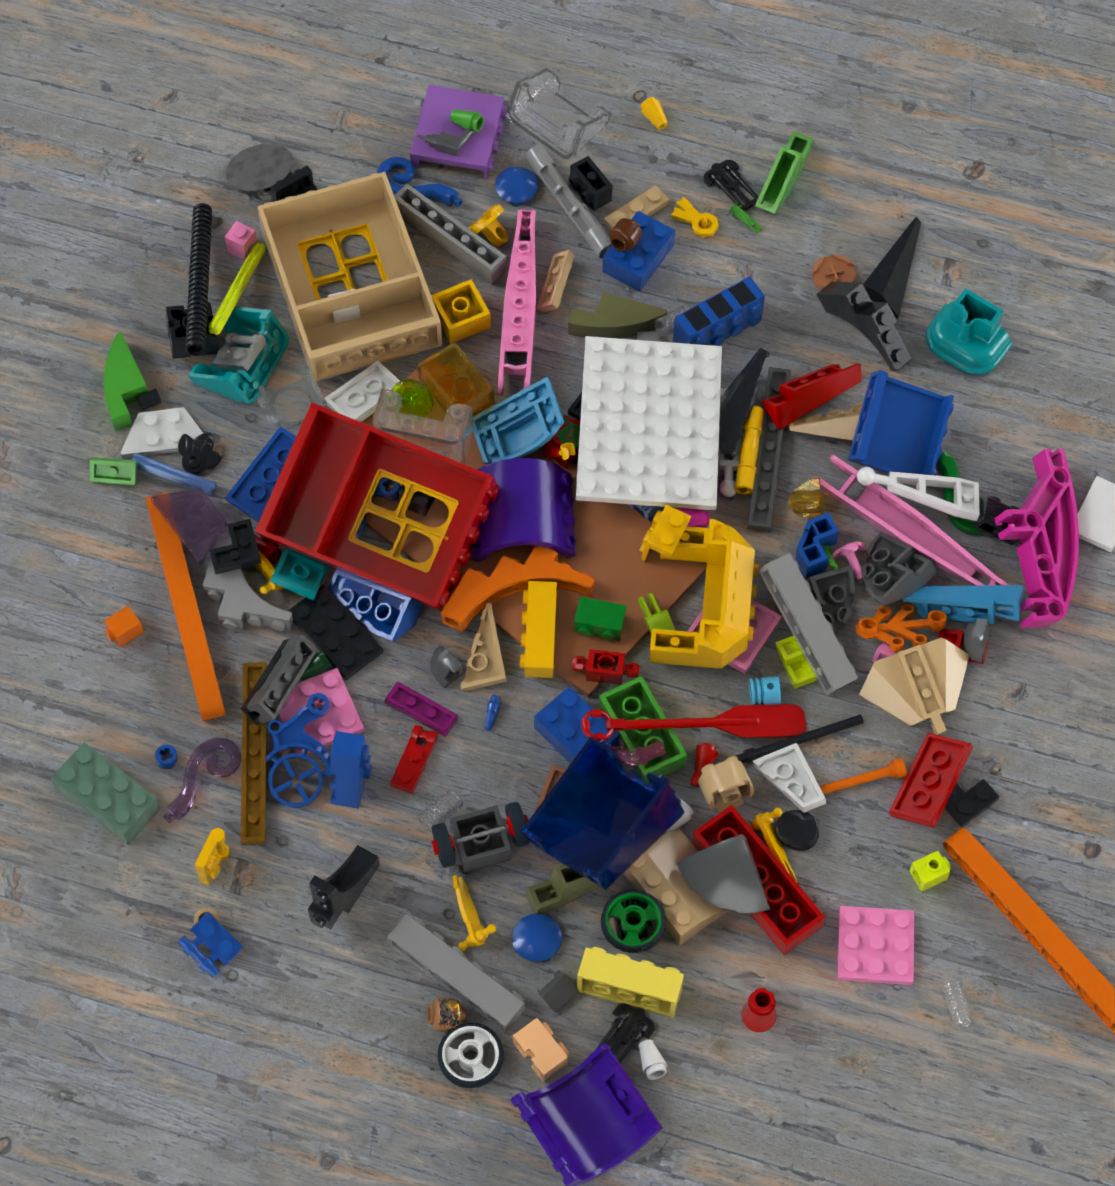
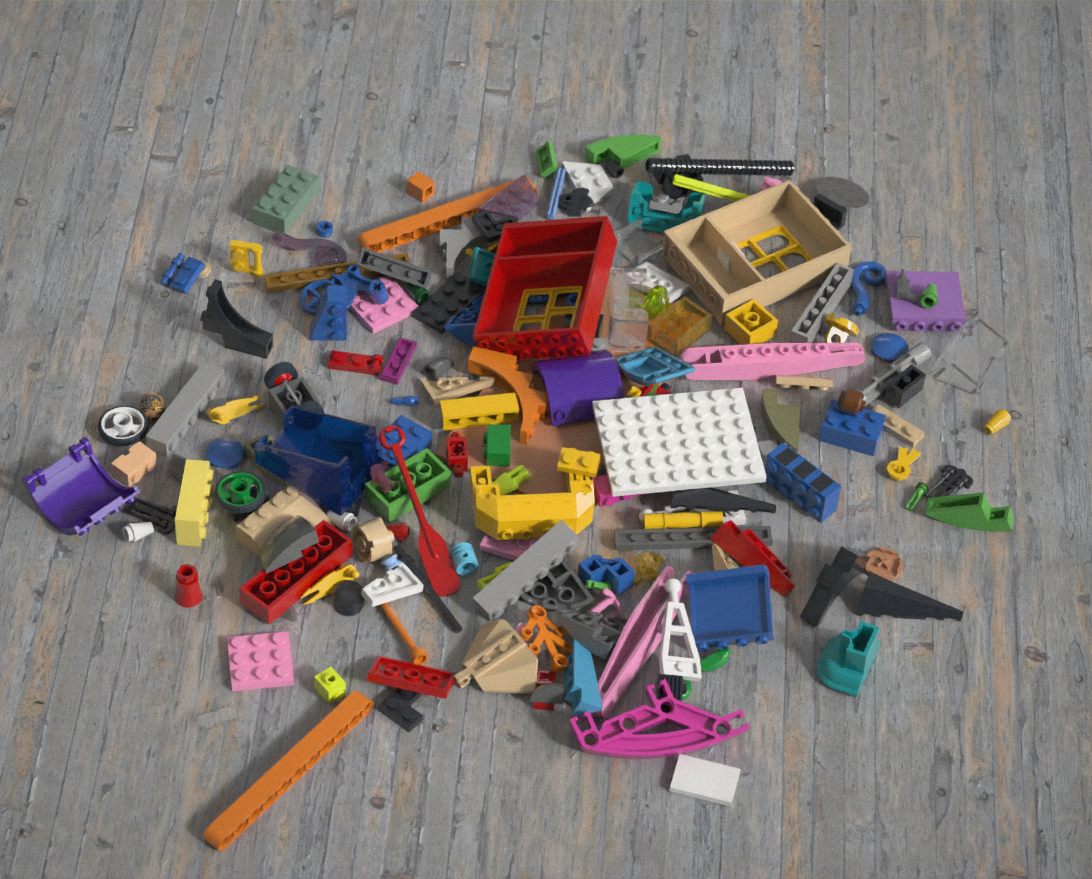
camera: 75 degrees right, 15 degrees down
(760, 771) = (390, 562): none -> light blue bush

